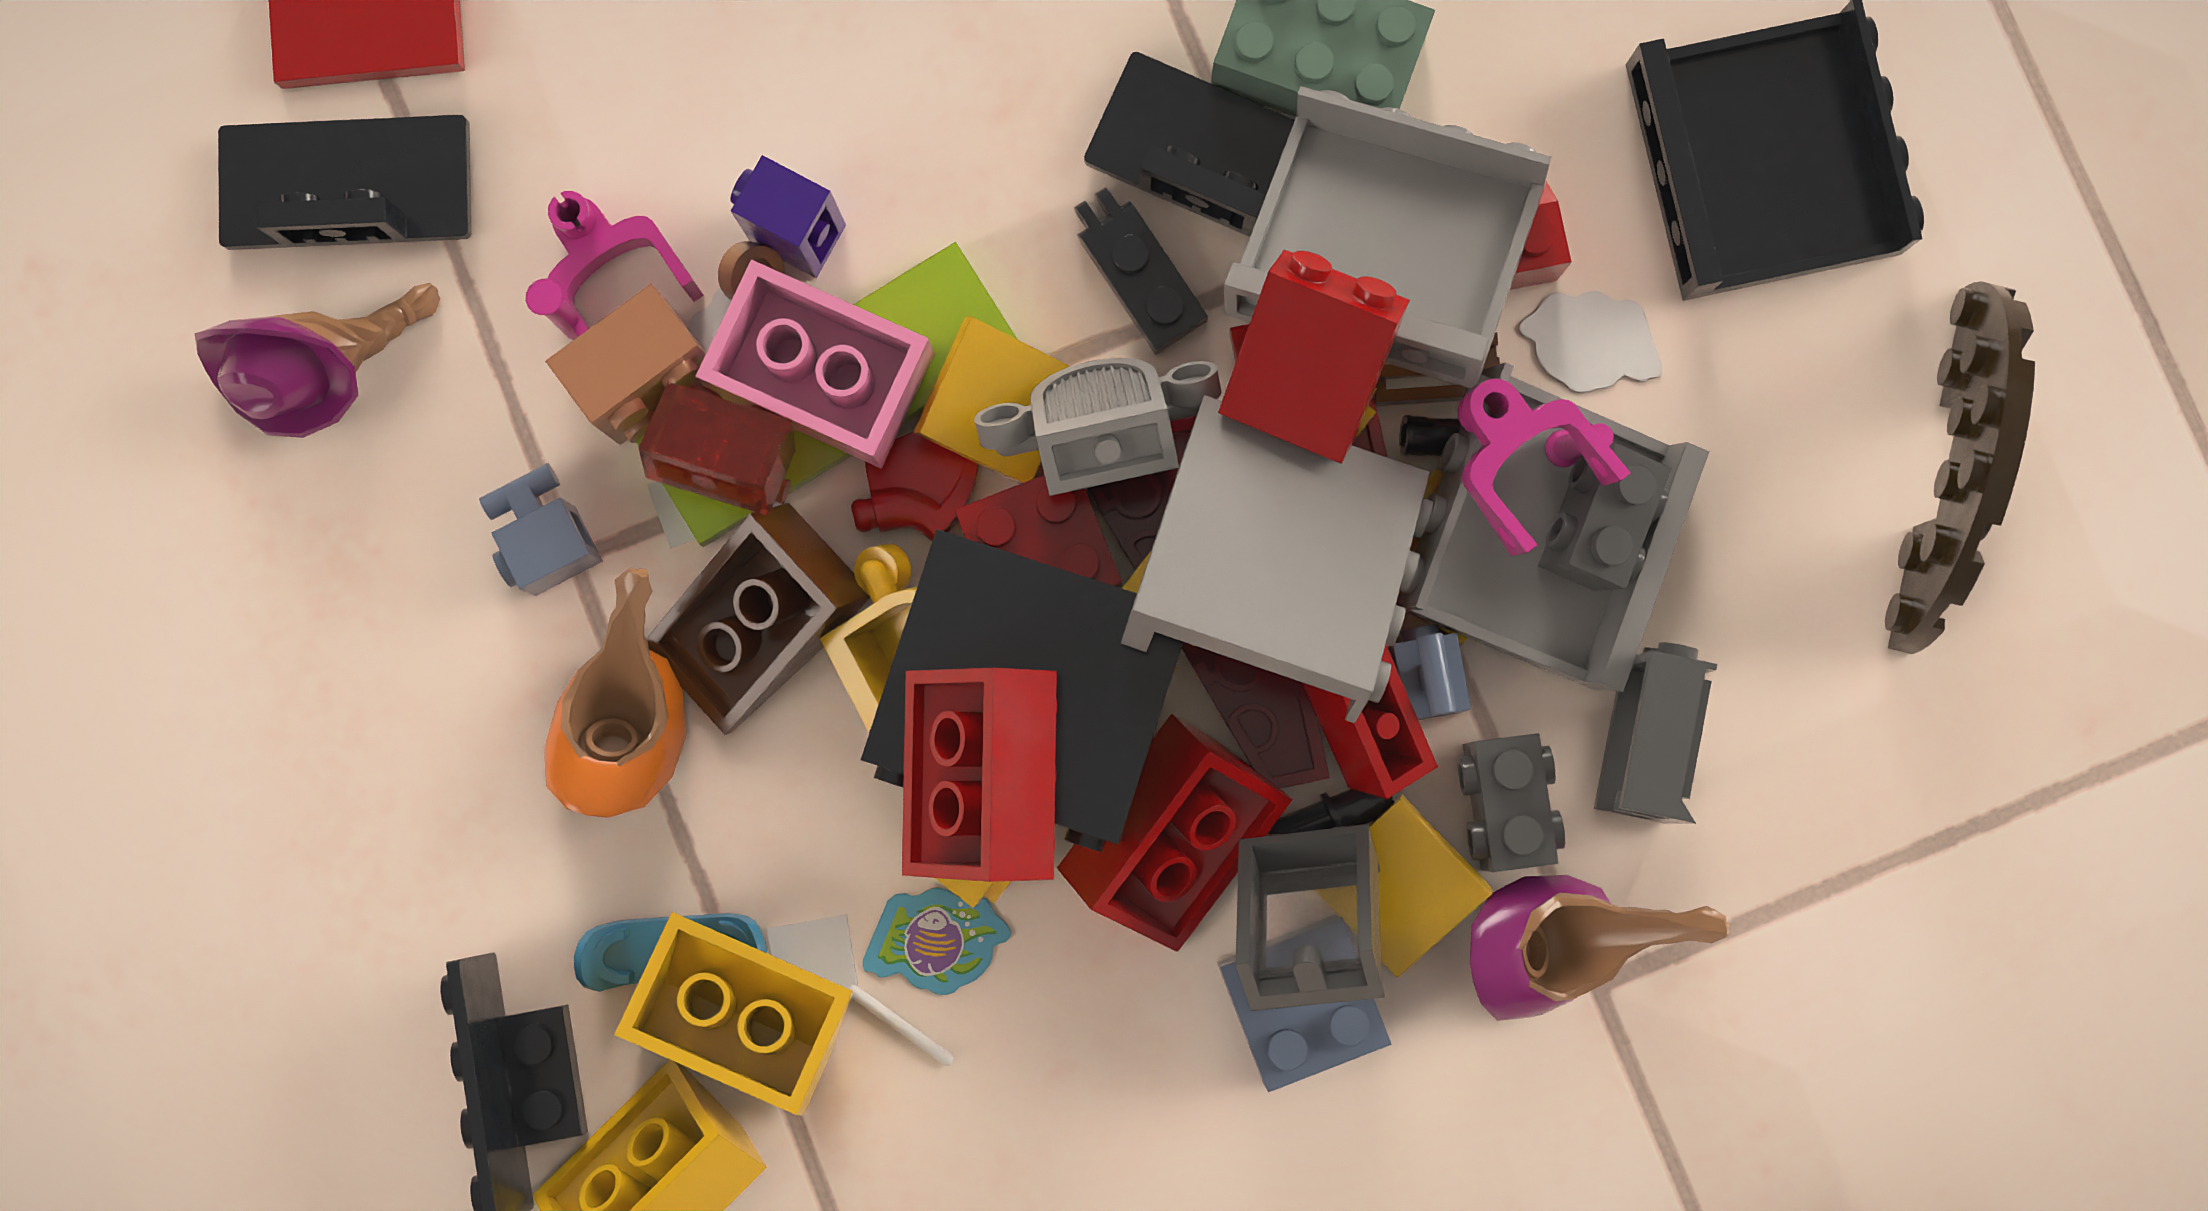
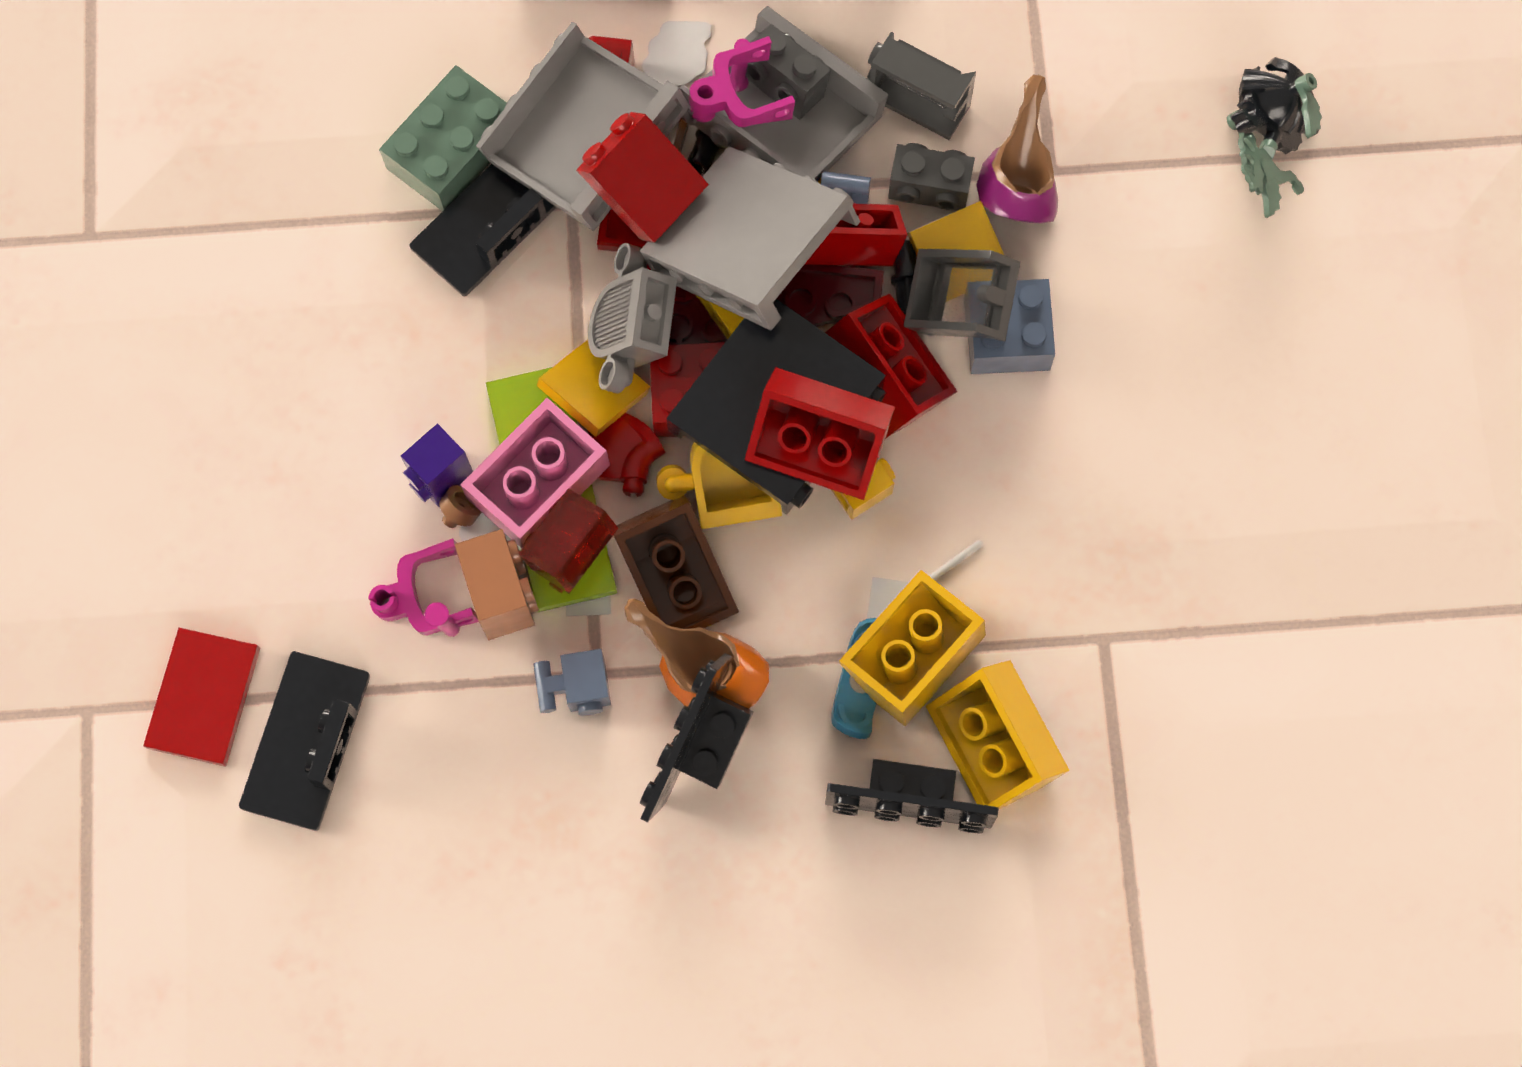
camera: 75 degrees left, 10 degrees down
(301, 367) = (416, 801): magenta hat -> none
(486, 759) = (706, 740): none -> black bracket
(934, 940) = (904, 530): sticker -> none
(1139, 272) = (541, 286): black hinge -> none

